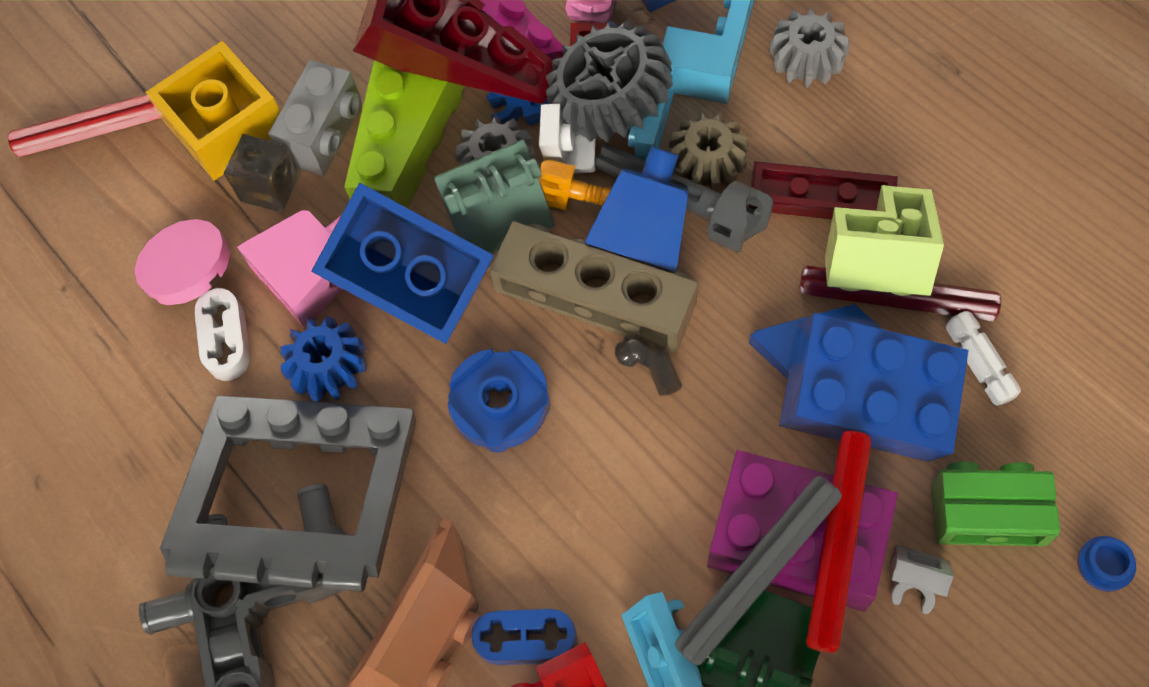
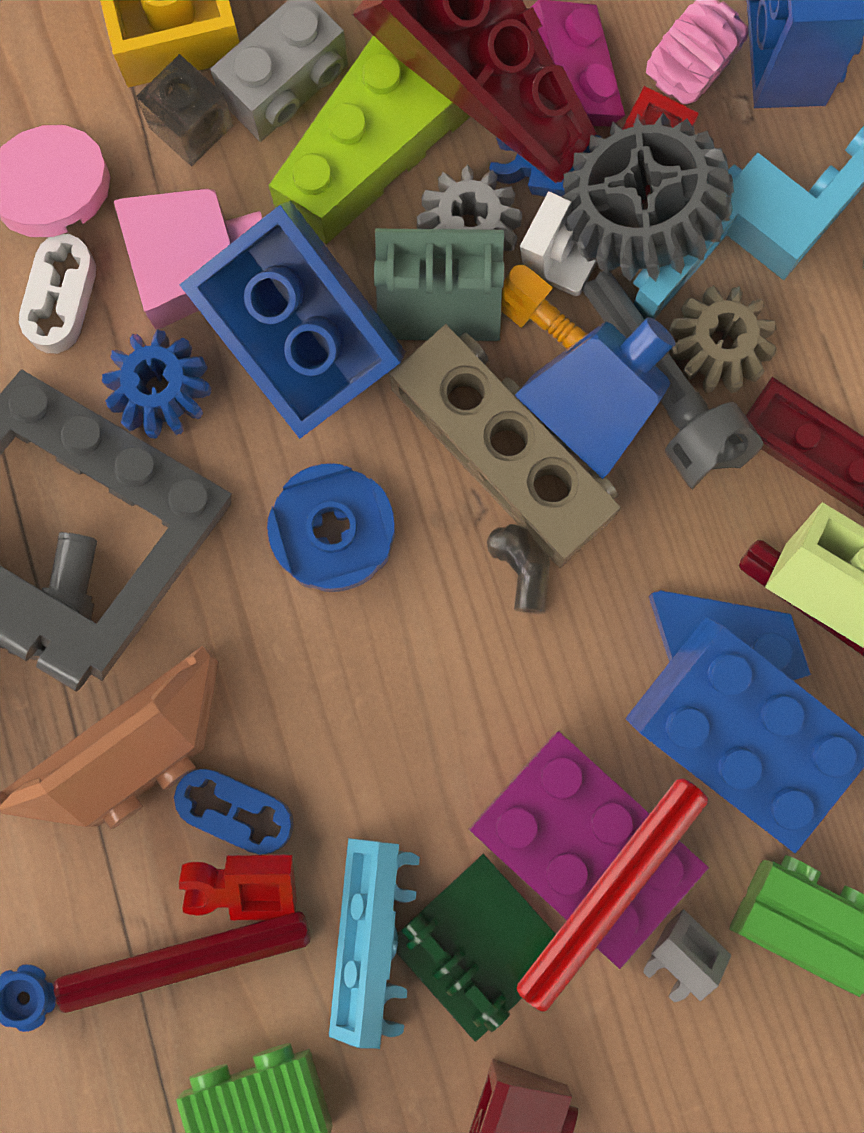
camera: 20 degrees right, 15 degrees up
(758, 570) = (509, 881): dark grey axle -> none

